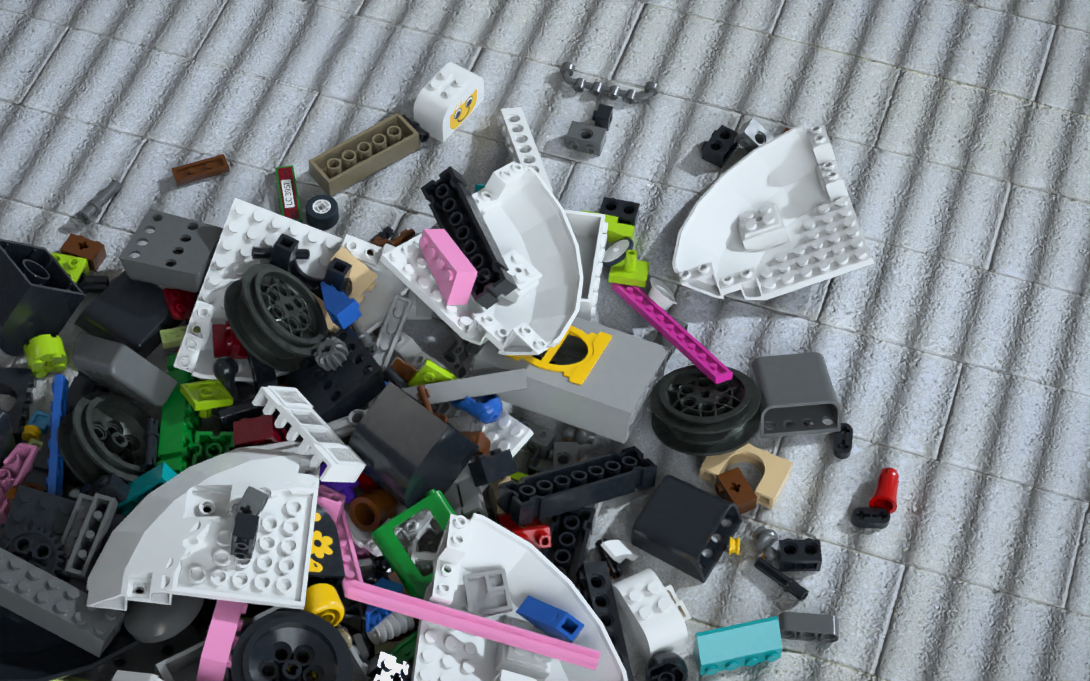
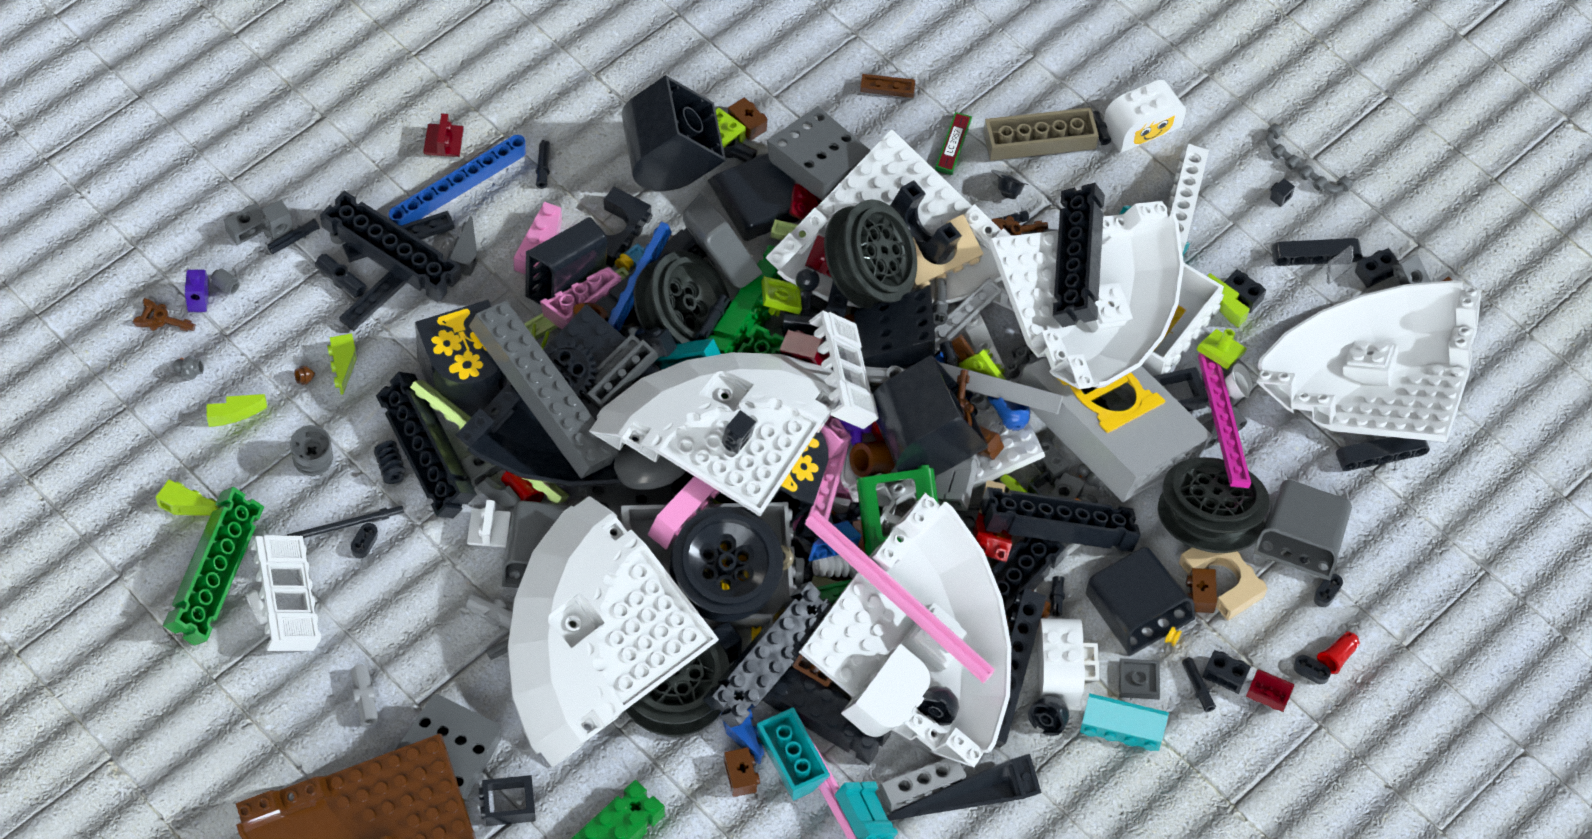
camera: 25 degrees right, 5 degrees up
(45, 355) = (669, 198): lime brick -> none
(95, 206) = (778, 80): dark grey pin -> none
(252, 502) = (760, 407): dark grey piece -> none
(265, 253) = (893, 189): black axle -> none
(322, 212) = (974, 172): black wheel -> none
(324, 602) = (782, 519): yellow head -> none
(331, 353) = (901, 307): dark grey gear -> none
(340, 308) = (931, 267): blue slope -> none
(361, 211) = (1008, 185): none -> black piece
(448, 266) = (1045, 273): bright pink wedge -> none
(487, 593) = (925, 575): light grey plate -> none
(492, 467) = (991, 470): black brick -> none
(550, 619) = (967, 623): blue slope -> none
(586, 138) = (1254, 205): dark grey brick -> none
(617, 252) = (1218, 325): white wheel -> none
(619, 550) = (1068, 592): white slope -> none
(623, 312) = (1195, 383): none -> black window
(661, 154) = (1313, 251): none -> black beam
(689, 156) = (1339, 264): none -> clear piece
(725, 599) = (1139, 678): none -> dark grey tile
(763, 541) = (1201, 644): dark grey animal -> none
(809, 627) = (1197, 736): dark grey beam -> none
(815, 300) = (1380, 452): none -> black beam
(847, 553) = (1270, 690): none -> dark red bracket

